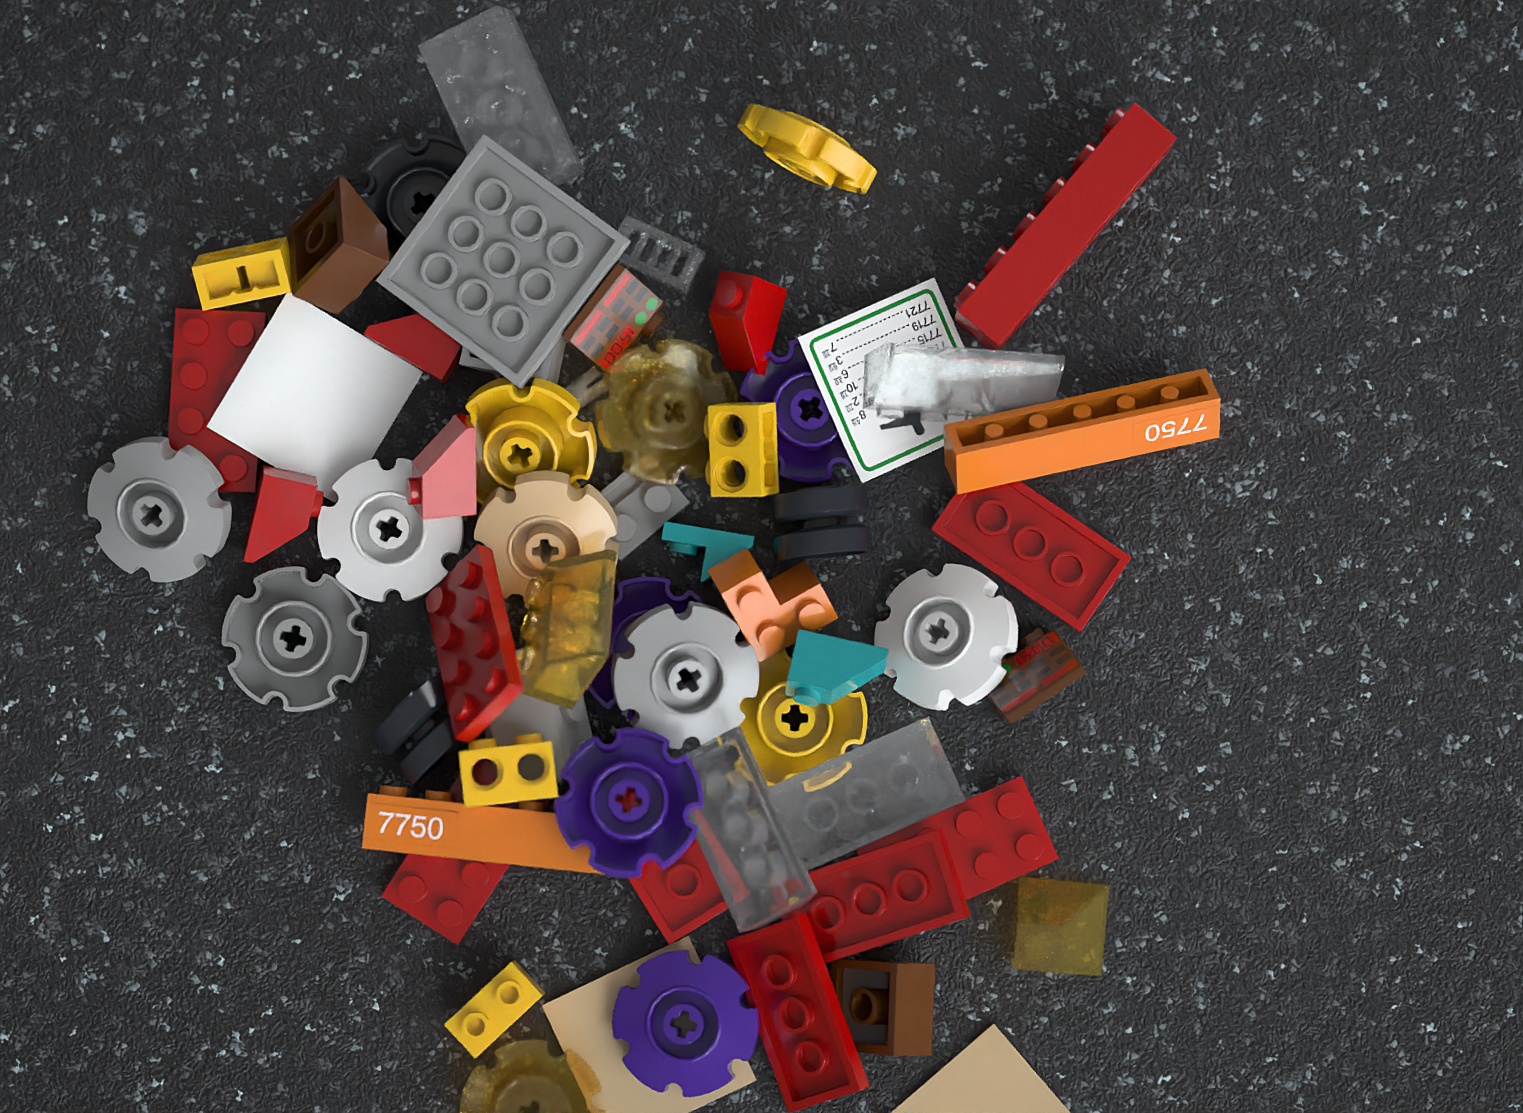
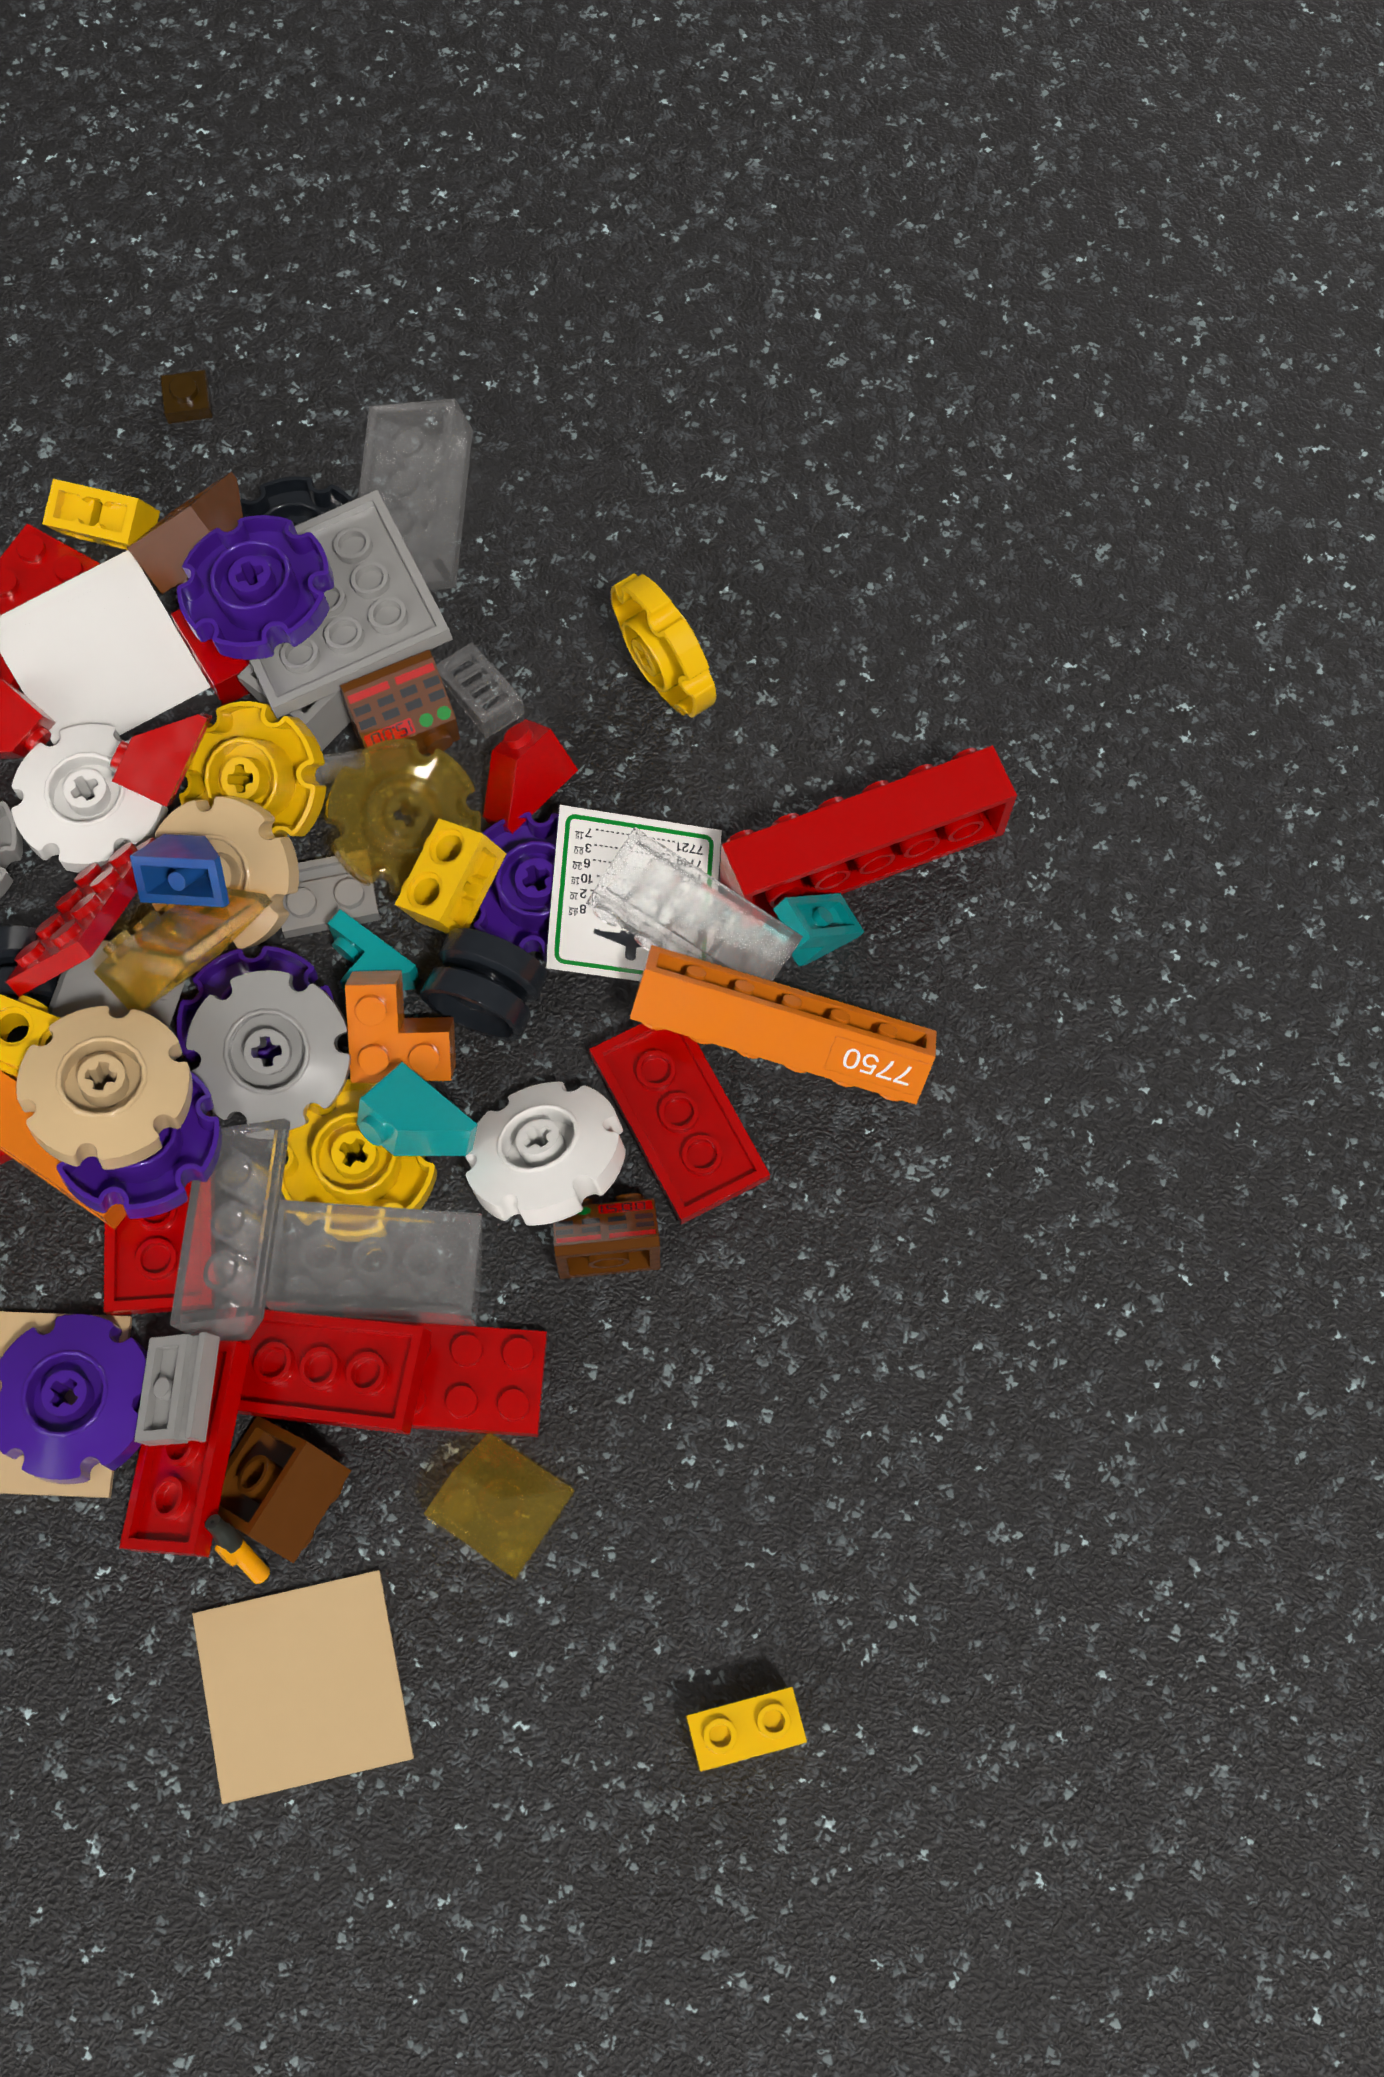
camera: 20 degrees right, 15 degrees down
(235, 109) = (186, 396): none -> dark brown plate
(415, 310) = (255, 587): none -> dark purple piece
(533, 568) = (180, 872): none -> blue slope
(599, 746) = (104, 1087): none -> tan piece
(772, 976) = (177, 1389): none -> light grey plate
(884, 1069) = (235, 1550): none -> piece
(1059, 320) = (822, 921): none -> teal slope
(1336, 995) = (746, 1729): none -> yellow brick

